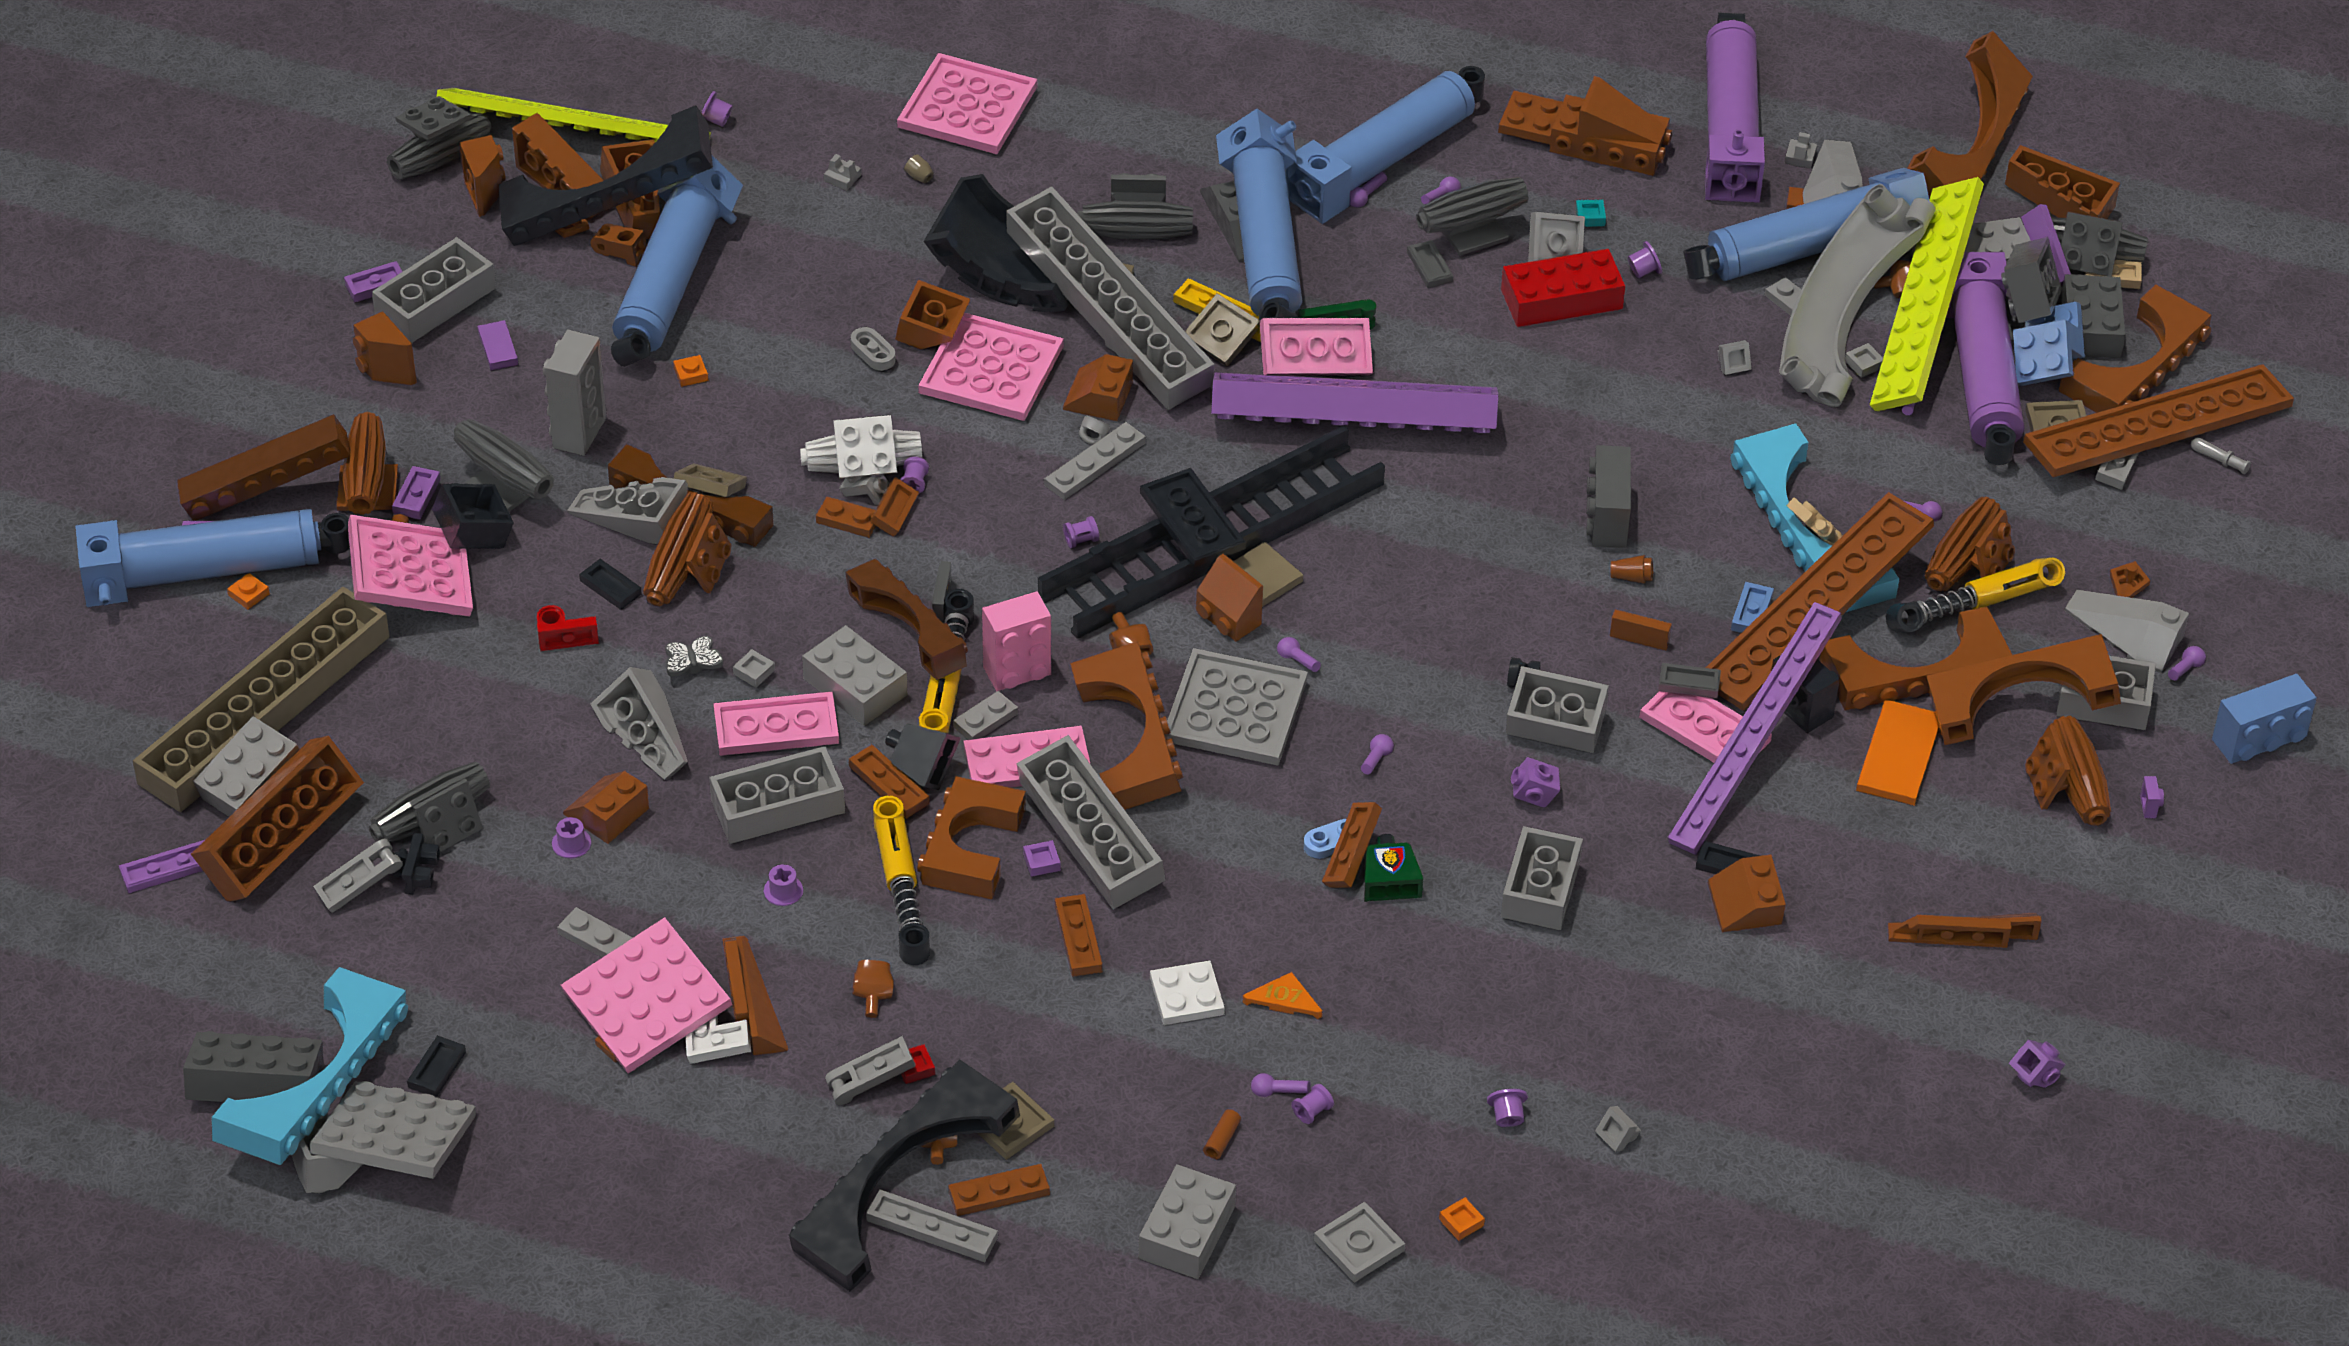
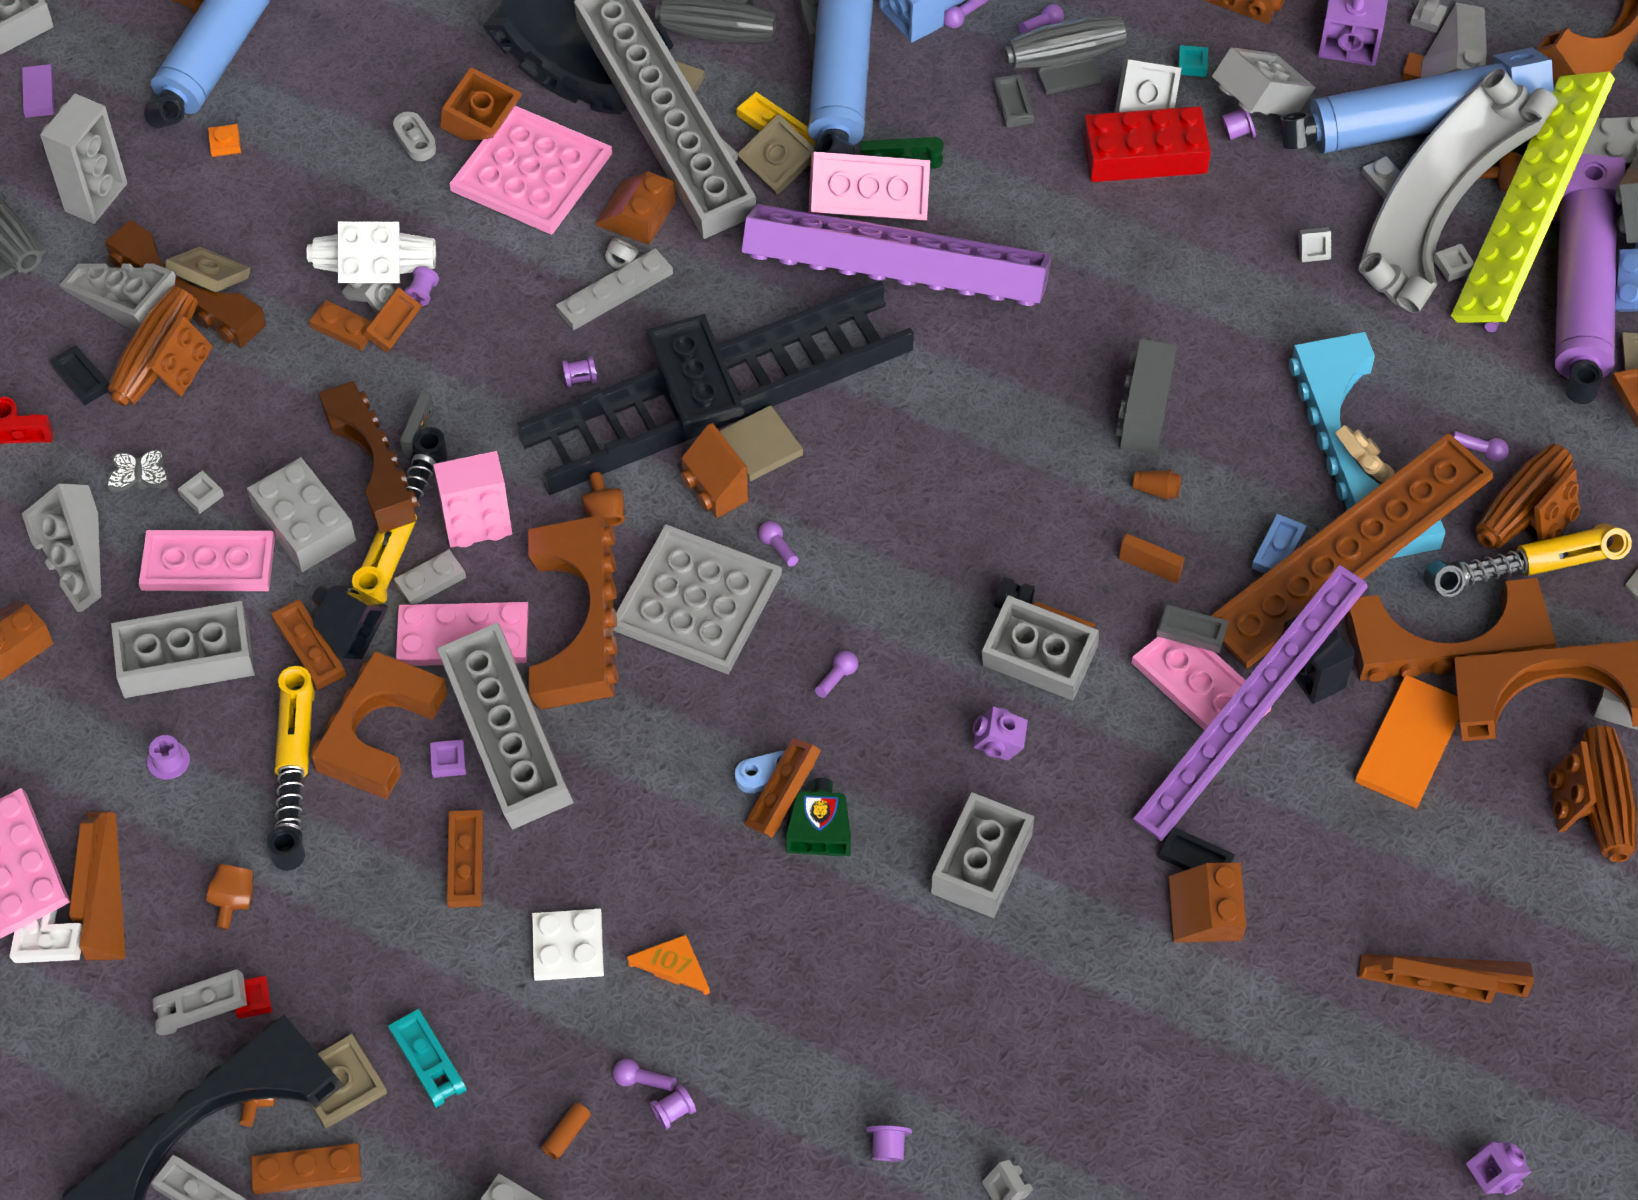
camera: 10 degrees right, 10 degrees up
(1084, 1092) = (426, 1057): none -> teal plate
(1661, 222) = (1262, 82): none -> light grey brick

